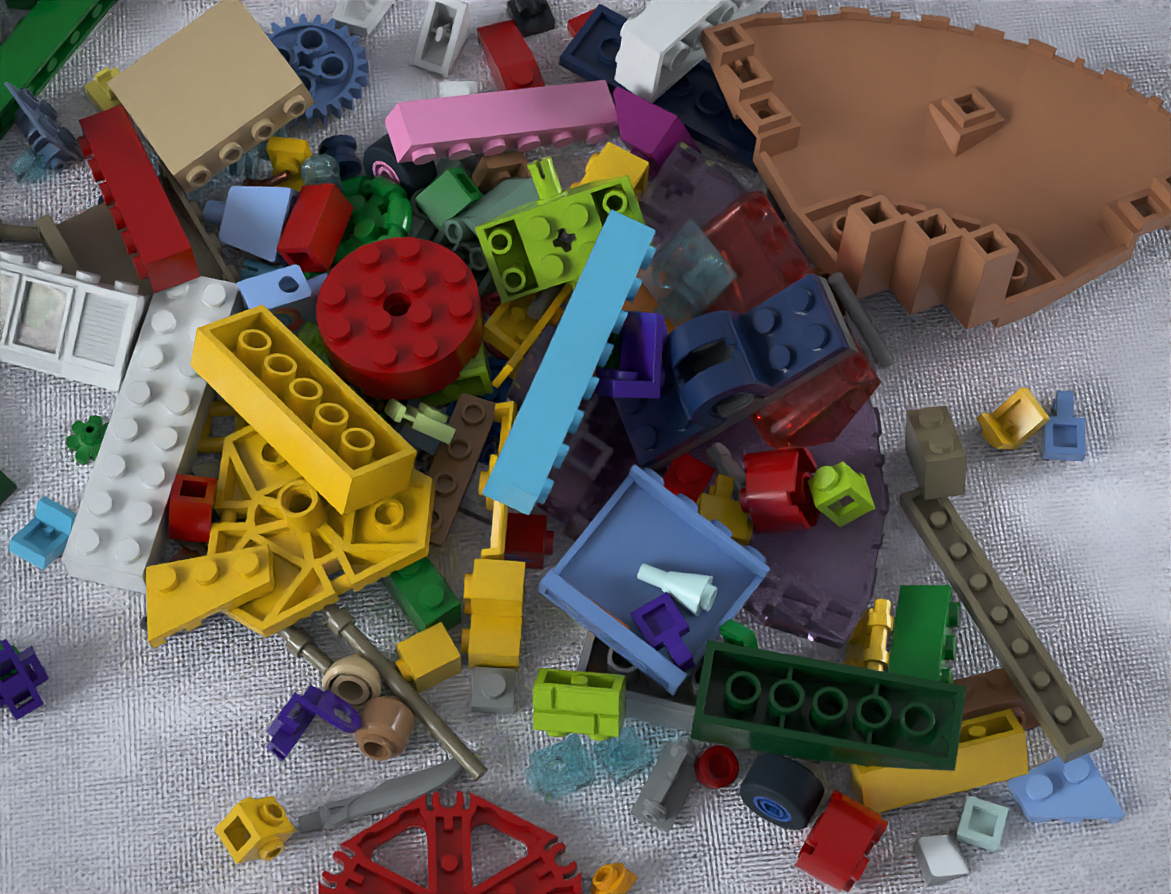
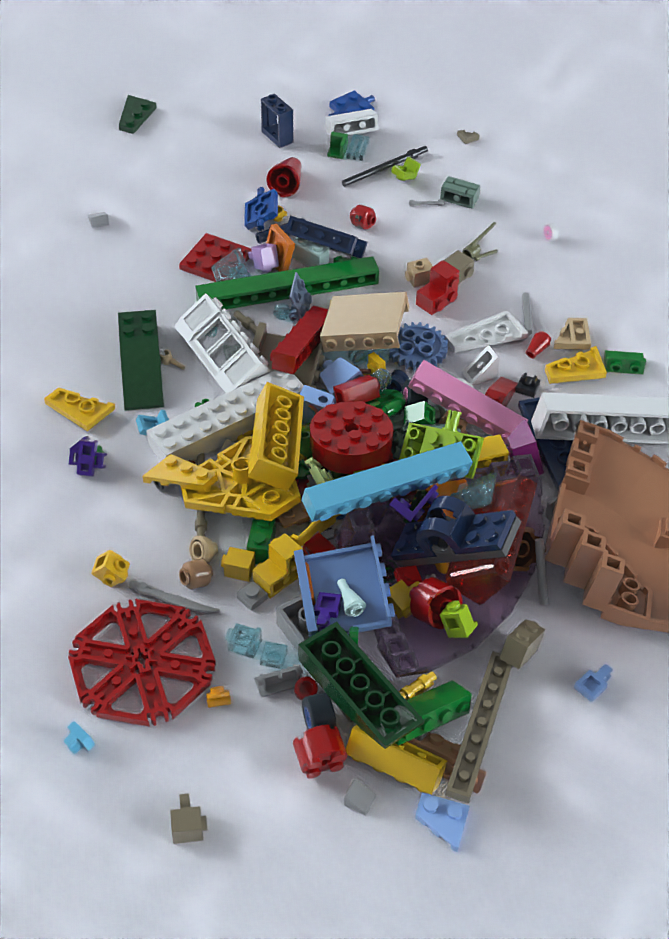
camera: 45 degrees right, 15 degrees down
(192, 508) = (208, 447): red brick -> none
(300, 712) = (168, 544): dark purple piece -> none
(343, 624) = (219, 528): dark tan bar -> none
(579, 703) = (269, 614): lime brick -> none
(981, 823) = (392, 800): light aqua tile -> none
(1013, 421) = (573, 662): yellow bracket -> none

